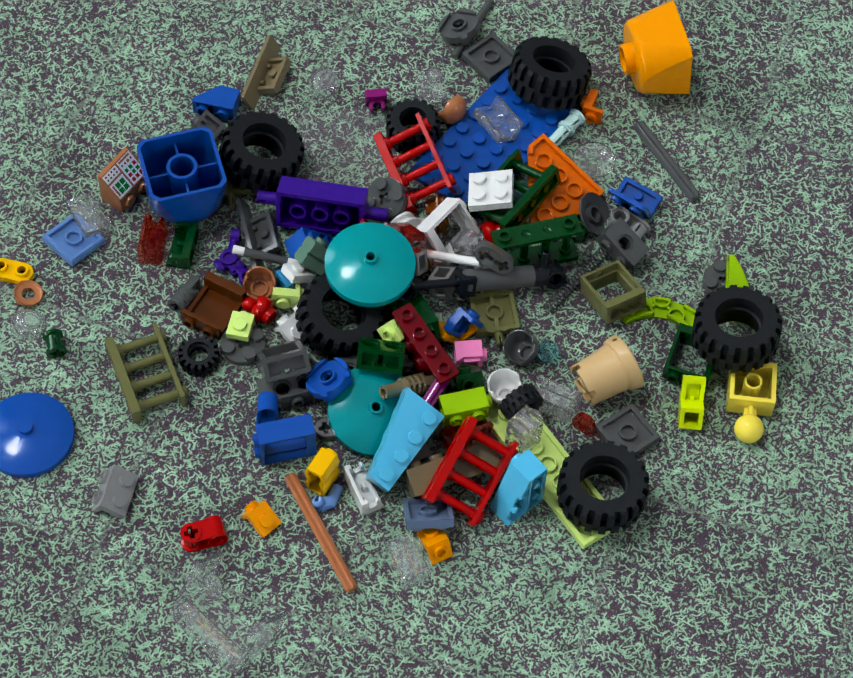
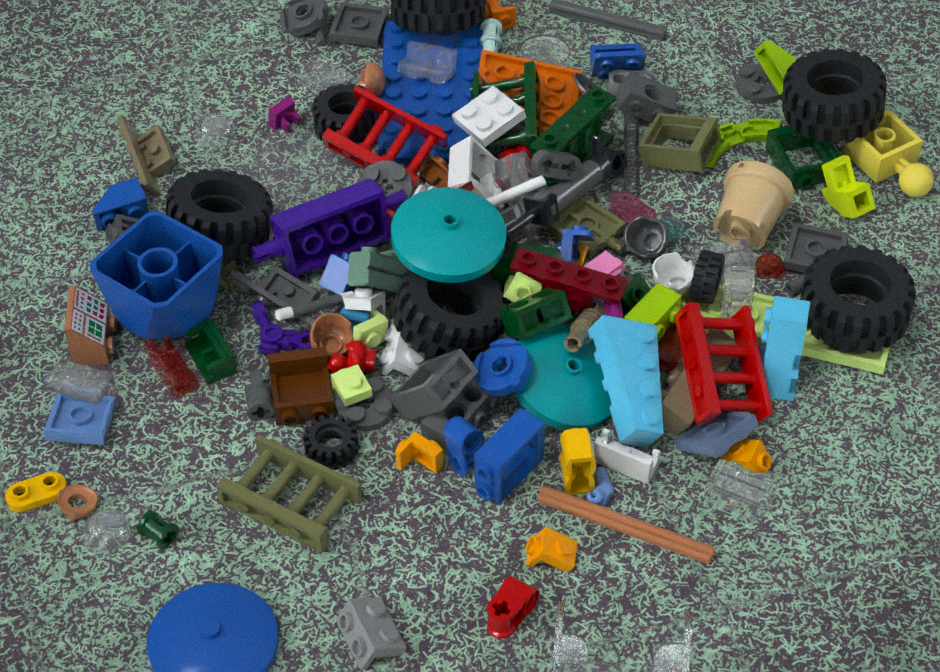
camera: 35 degrees left, 10 degrees down
(241, 393) = (420, 449): none -> light orange bracket
(535, 324) = (633, 206): none -> clear pink plate

